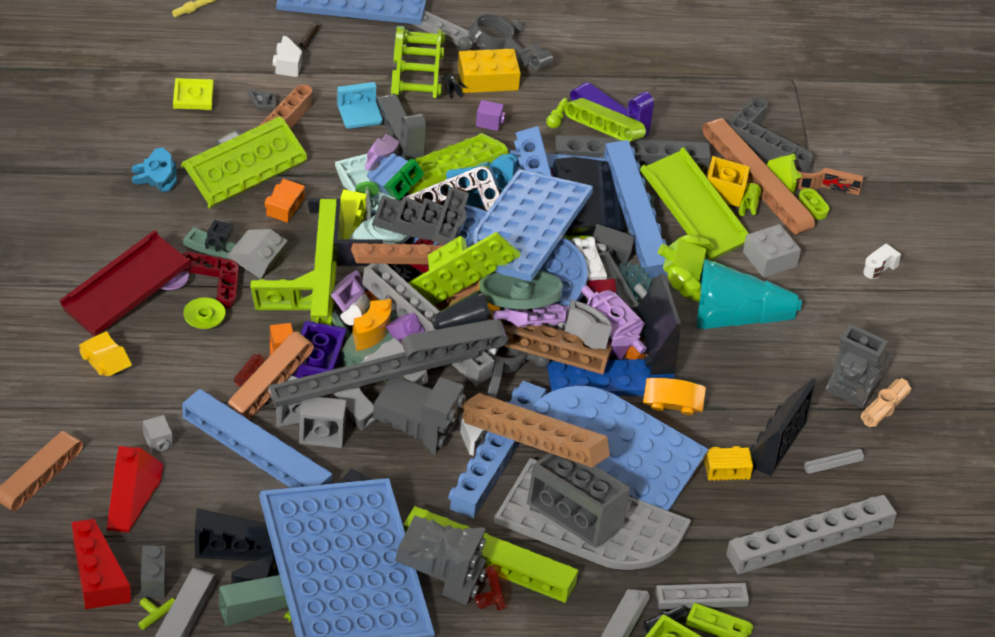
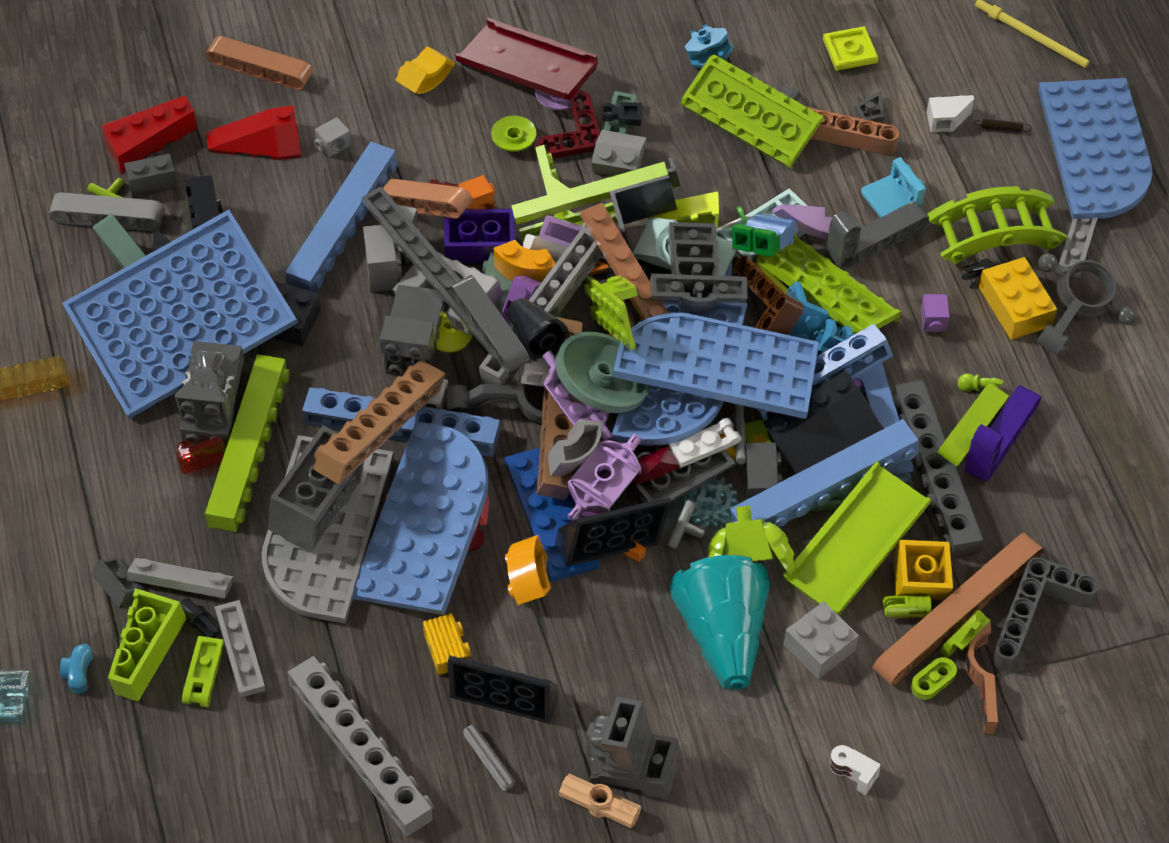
camera: 80 degrees right, 10 degrees up
(285, 200) = (712, 161): orange brick -> none

